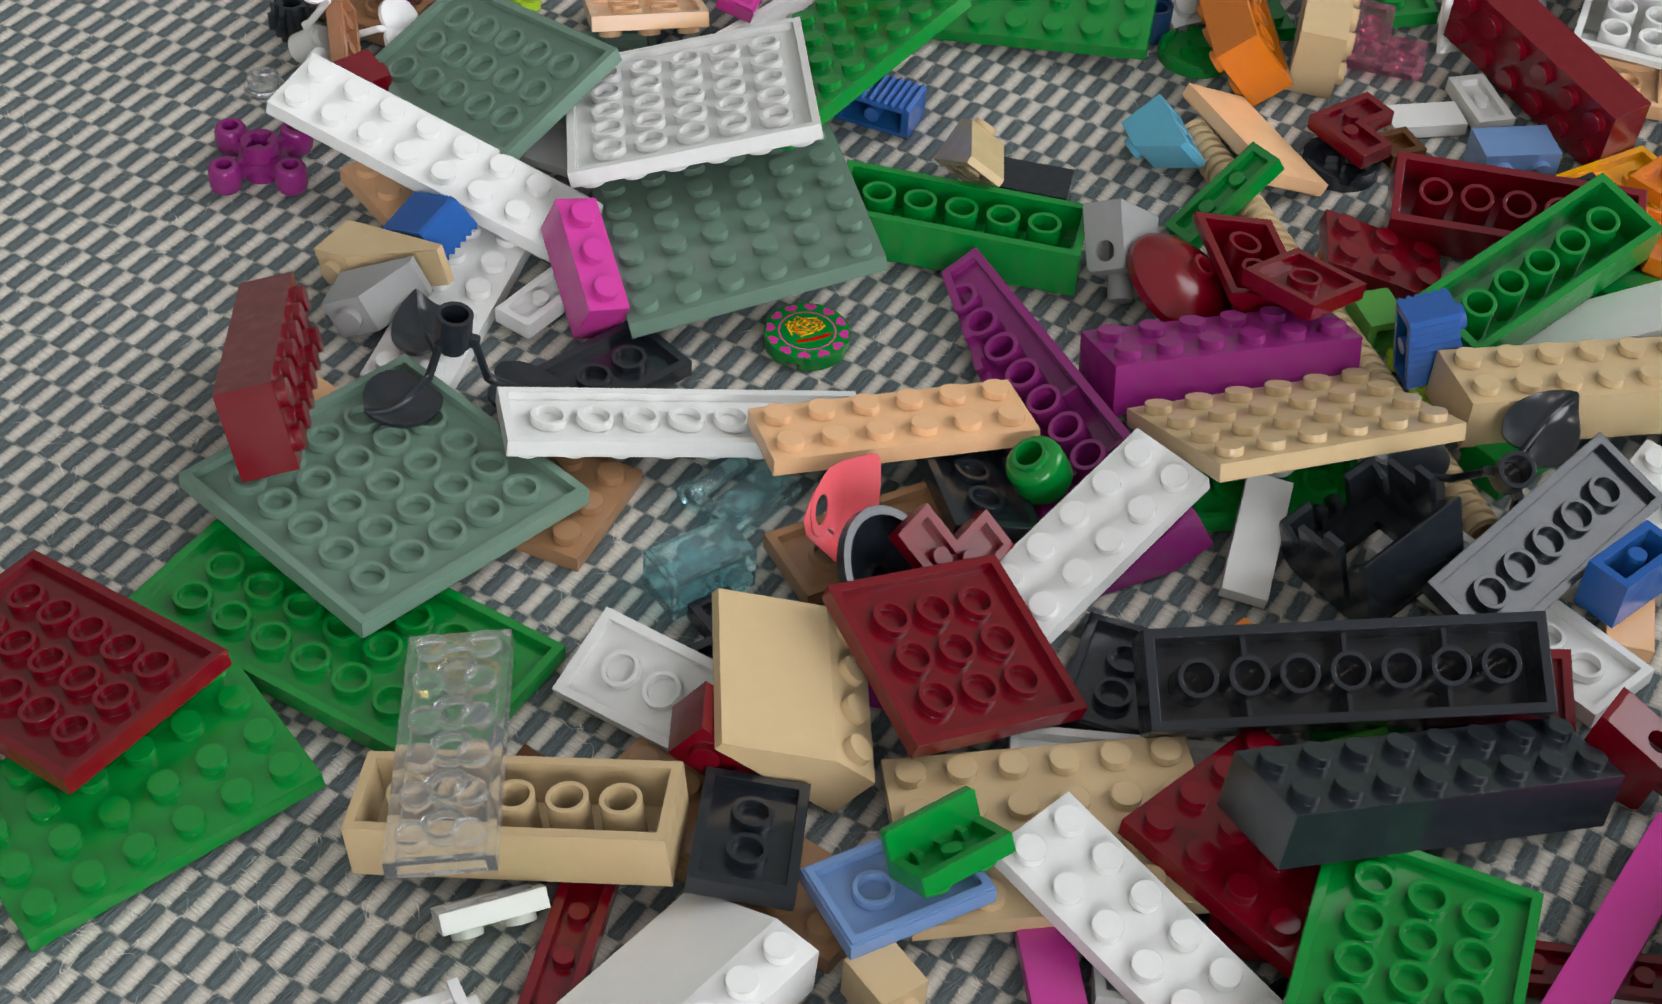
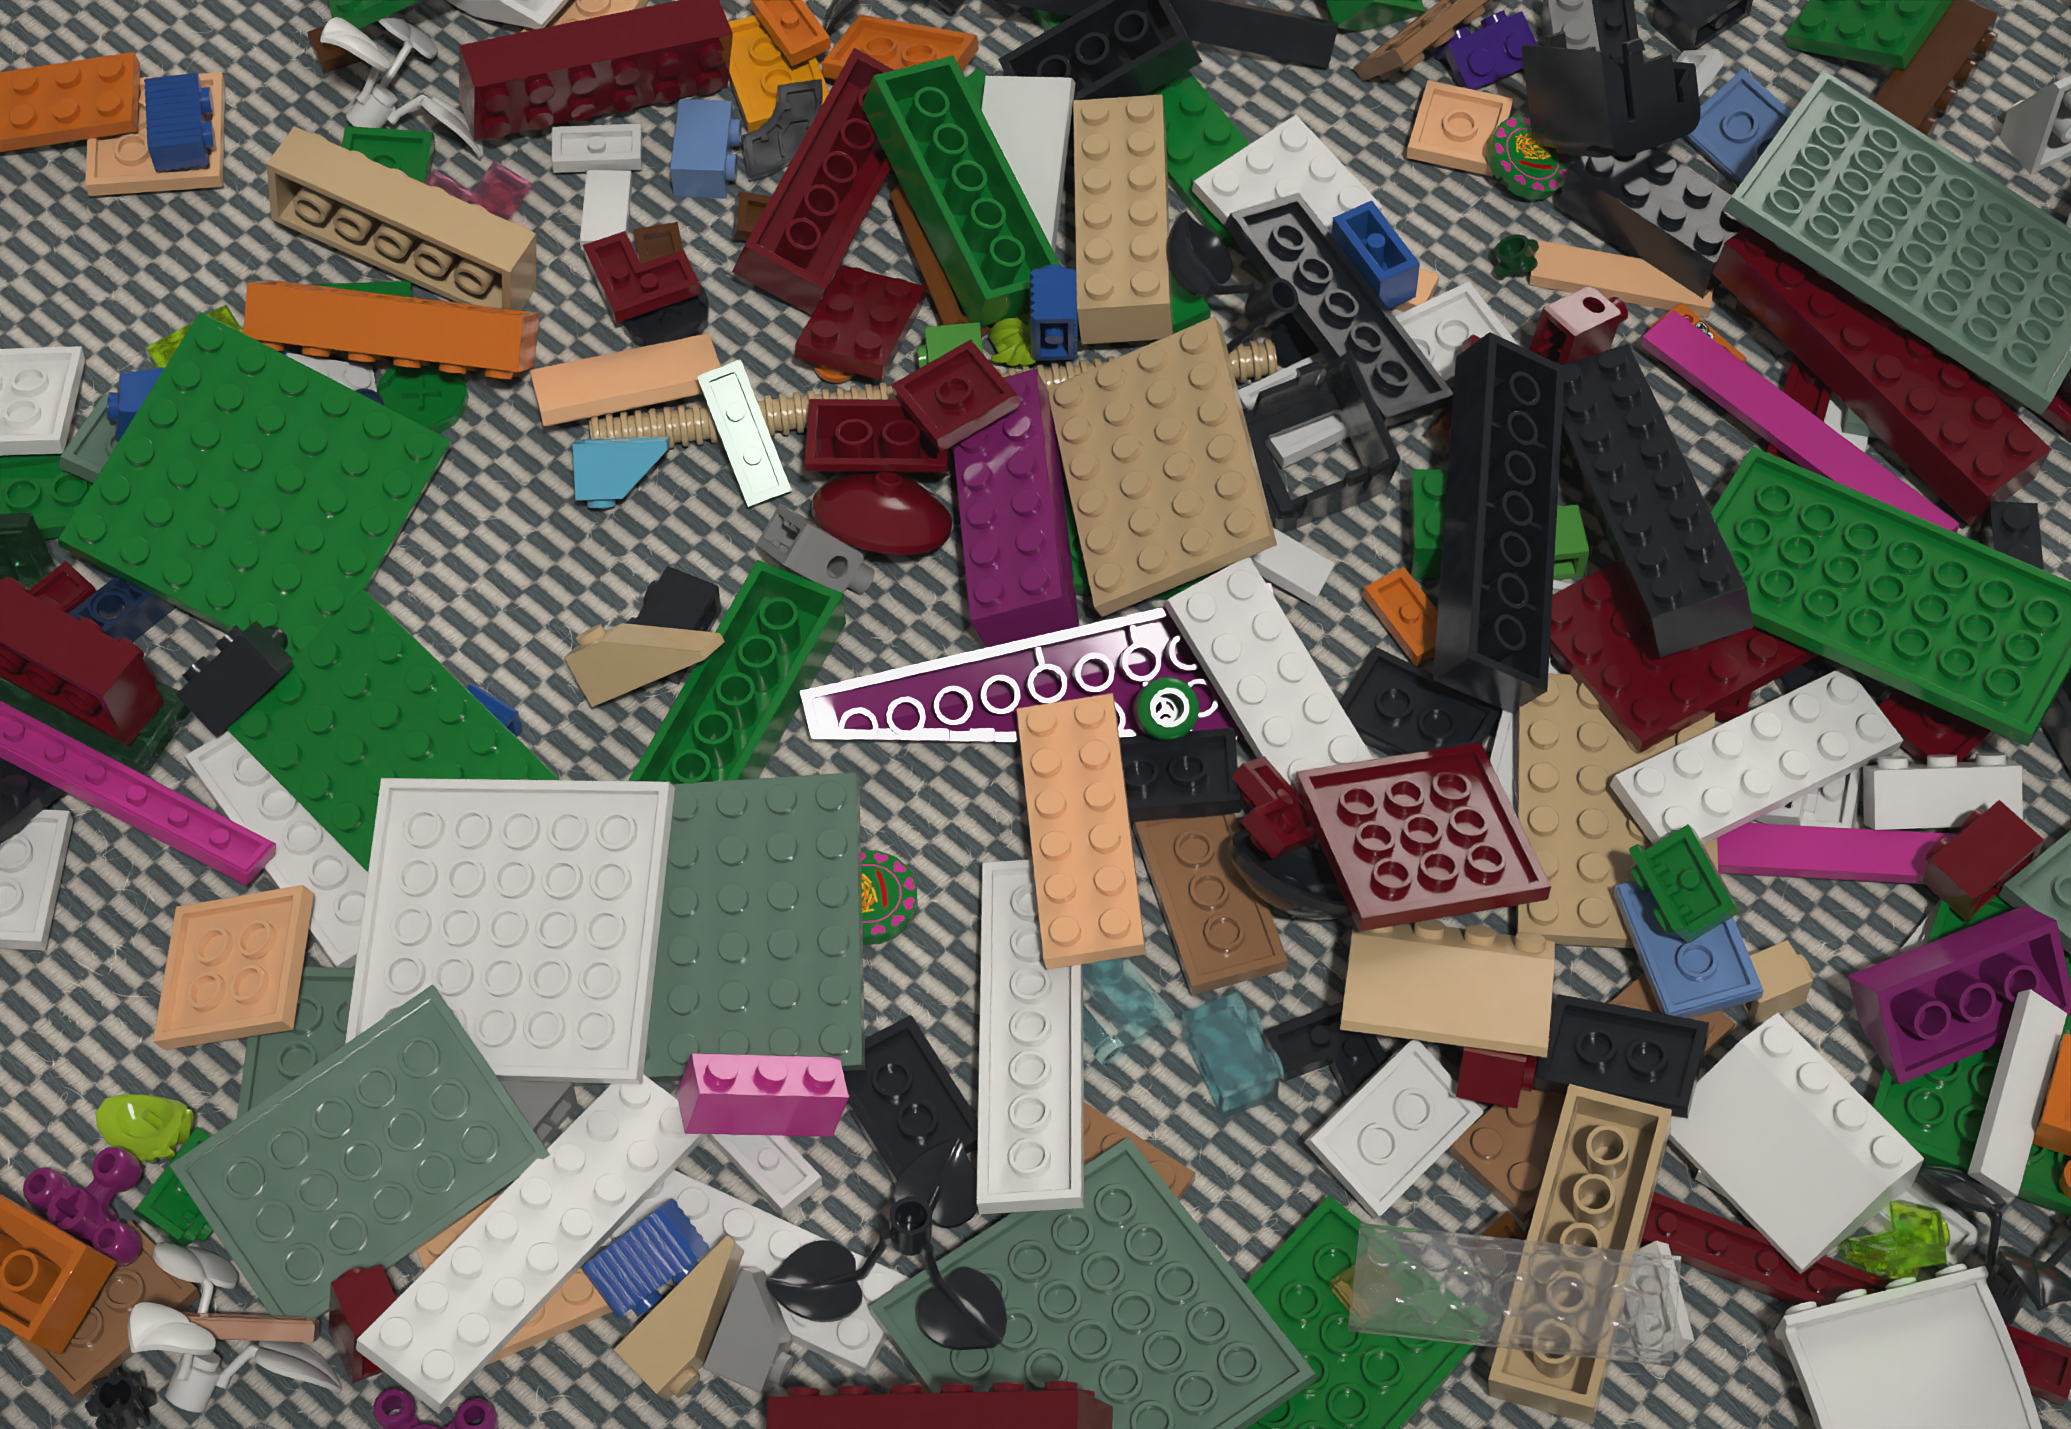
camera: 75 degrees left, 15 degrees up
(848, 489) = (1208, 903): coral piece -> none

